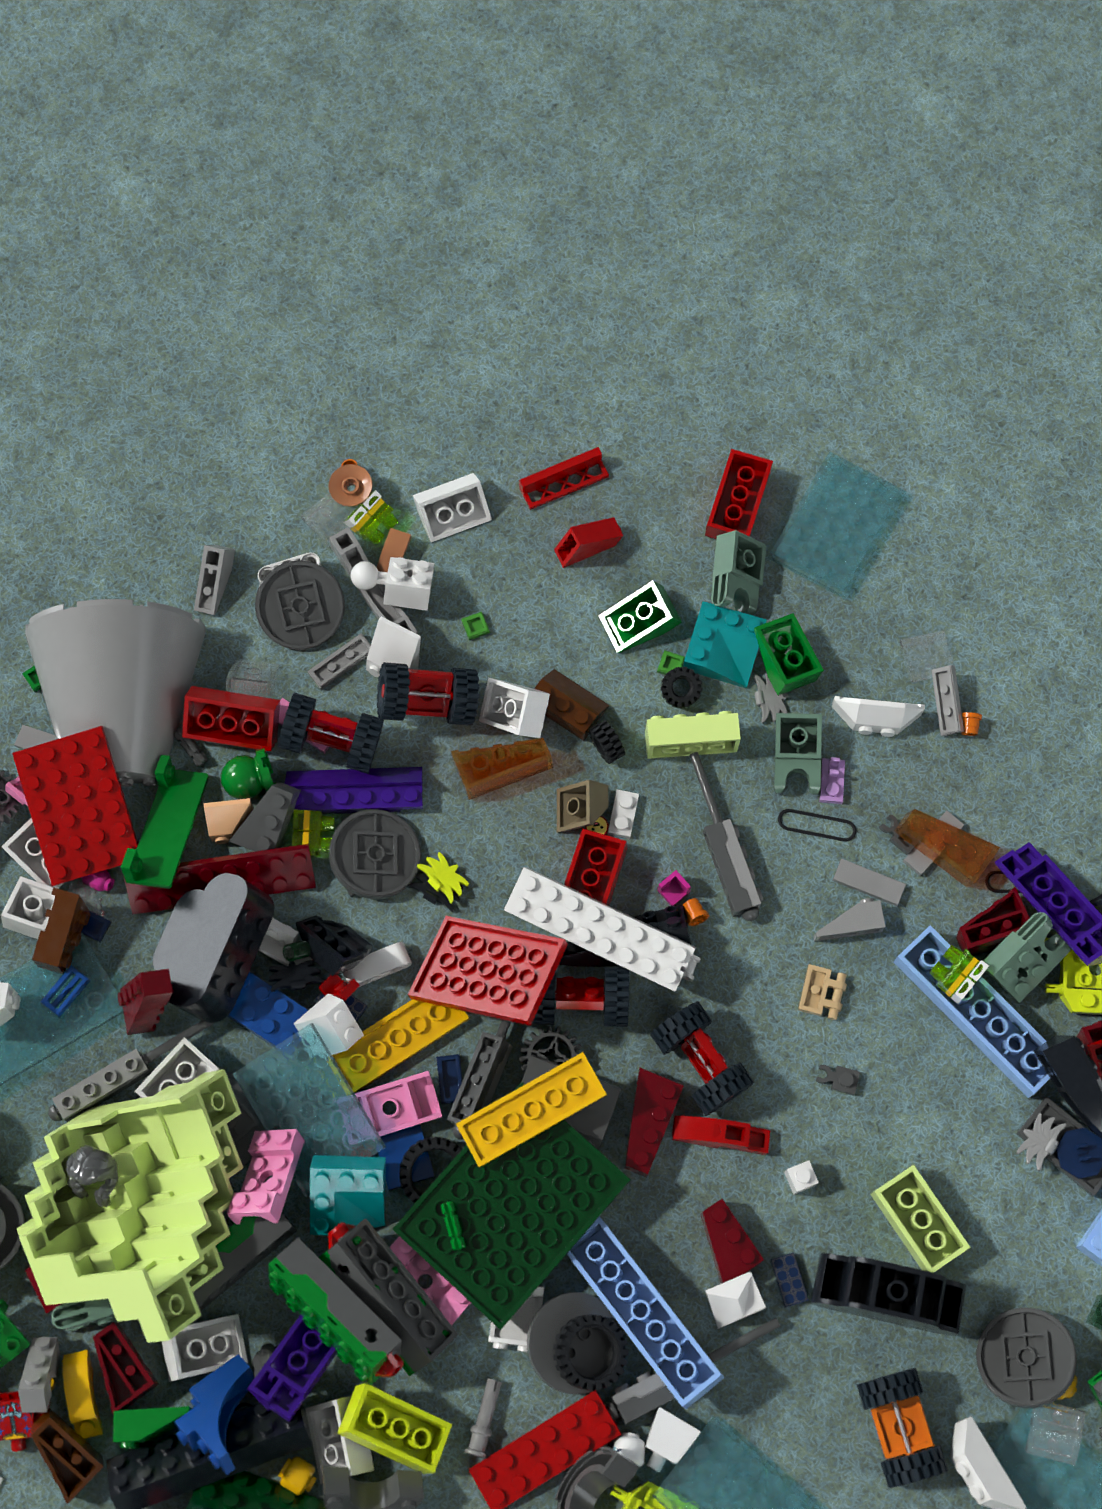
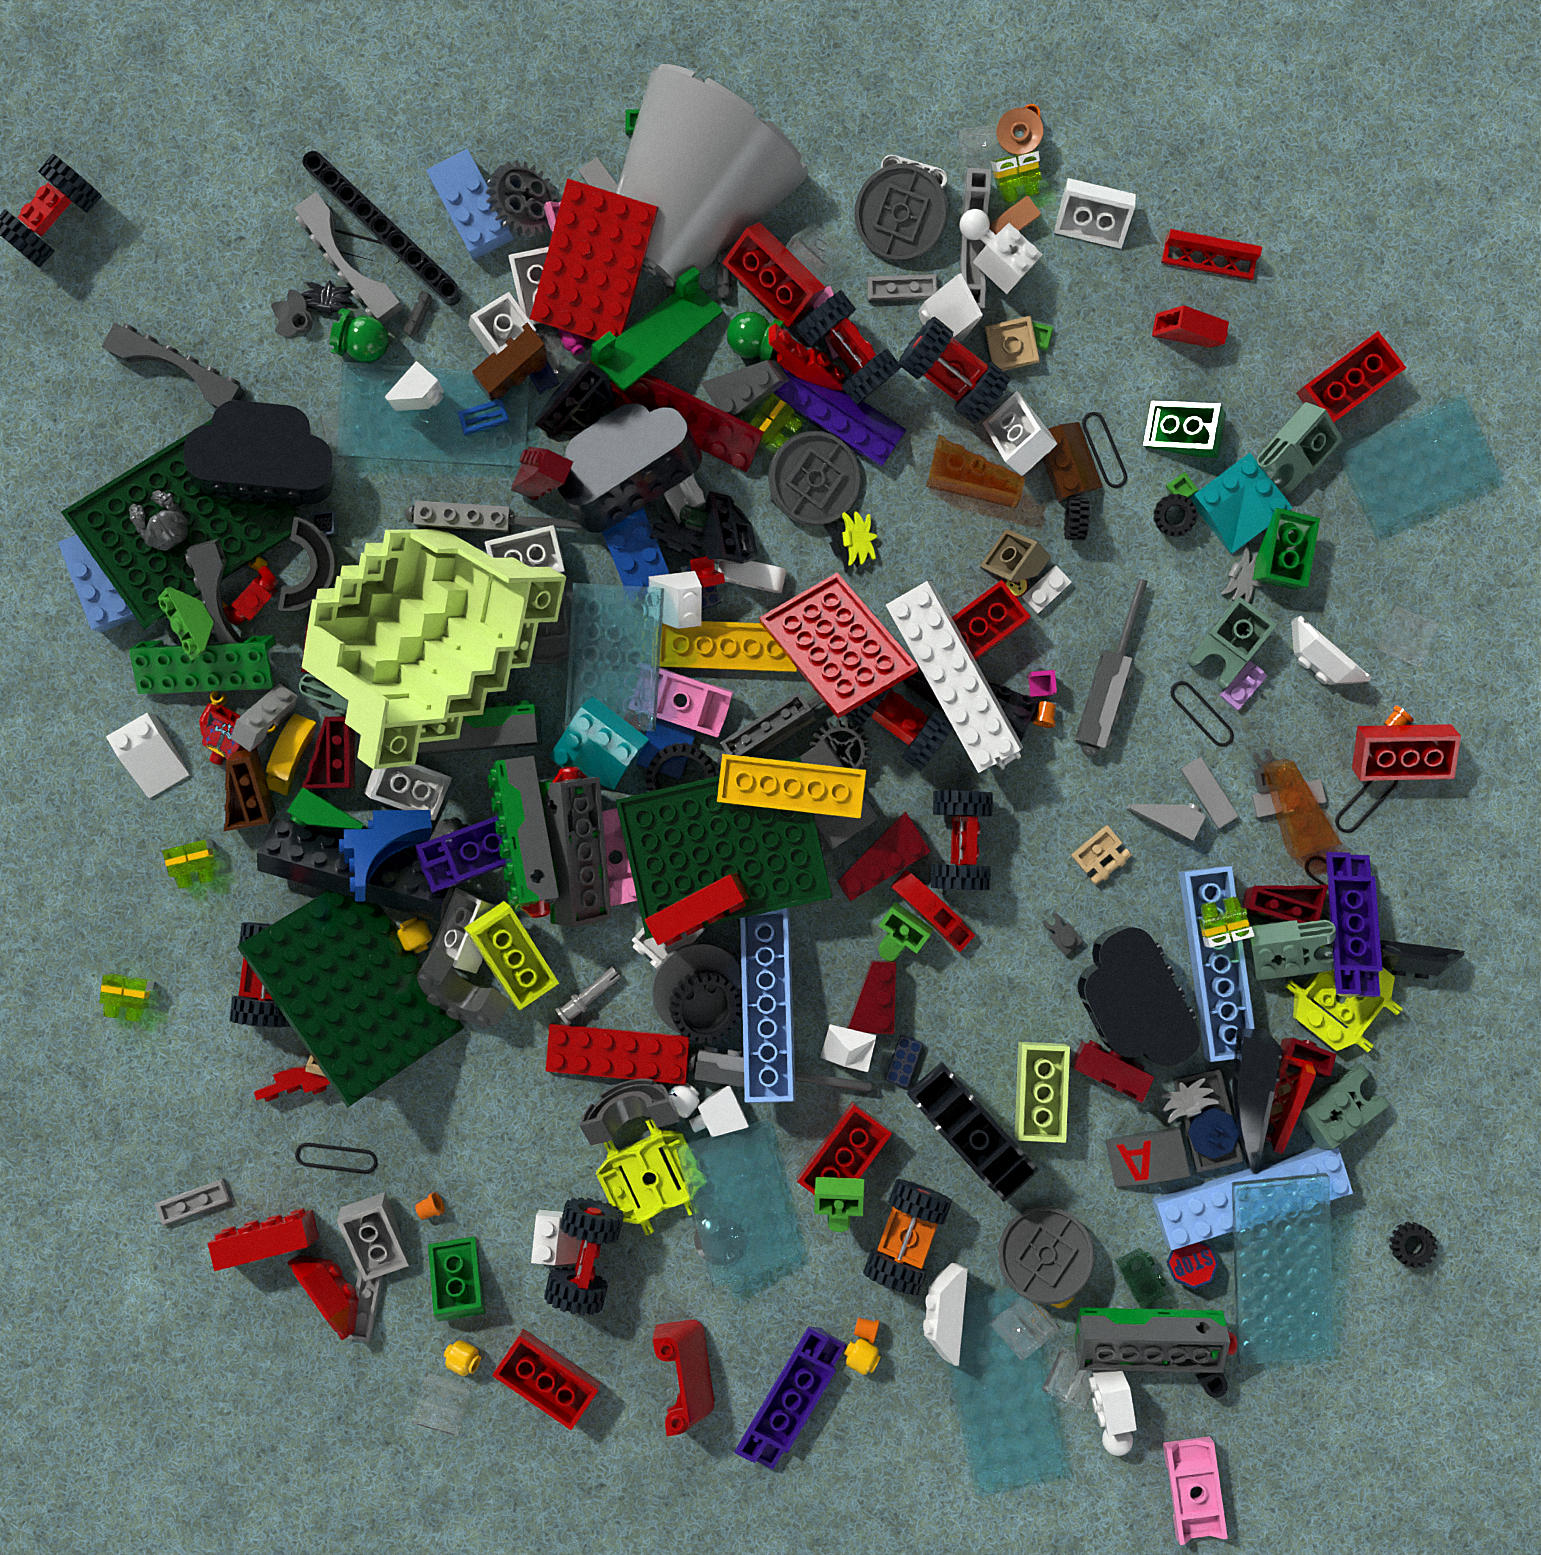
camera: 30 degrees right, 15 degrees up
(92, 1166) = (405, 581): dark grey hair -> none
(136, 924) = (577, 401): none -> black wedge
(213, 577) = (844, 134): light grey slope -> none
(225, 818) = (711, 361): light nougat slope -> none
(274, 1155) = (561, 673): bright pink piece -> none
(308, 768) = (806, 364): none -> red slope
(449, 1077) = (747, 708): dark blue tile -> none
(453, 1225) = (664, 832): green axle -> none
(459, 644) = (1012, 343): none -> tan tile
(525, 1269) = (697, 908): none -> red brick
(585, 684) = (1113, 446): none -> black piece
(692, 734) = (1151, 562): yellowish green brick -> none
(709, 1168) = (902, 930): none -> bright green brick
(798, 1397) = (846, 1148): none -> red brick
(801, 1177) = (972, 990): white brick -> none
(822, 1436) = (839, 1200): none -> bright green brick
(936, 1087) = (1136, 999): none -> black brick
(947, 700) = (1394, 687): light grey tile -> none
(962, 1160) = (1112, 1070): none -> dark red wedge
(985, 801) = (1368, 812): none -> black piece
(994, 743) = (1406, 752): none -> red brick
(1045, 1213) = (1147, 1157): none -> dark grey slope

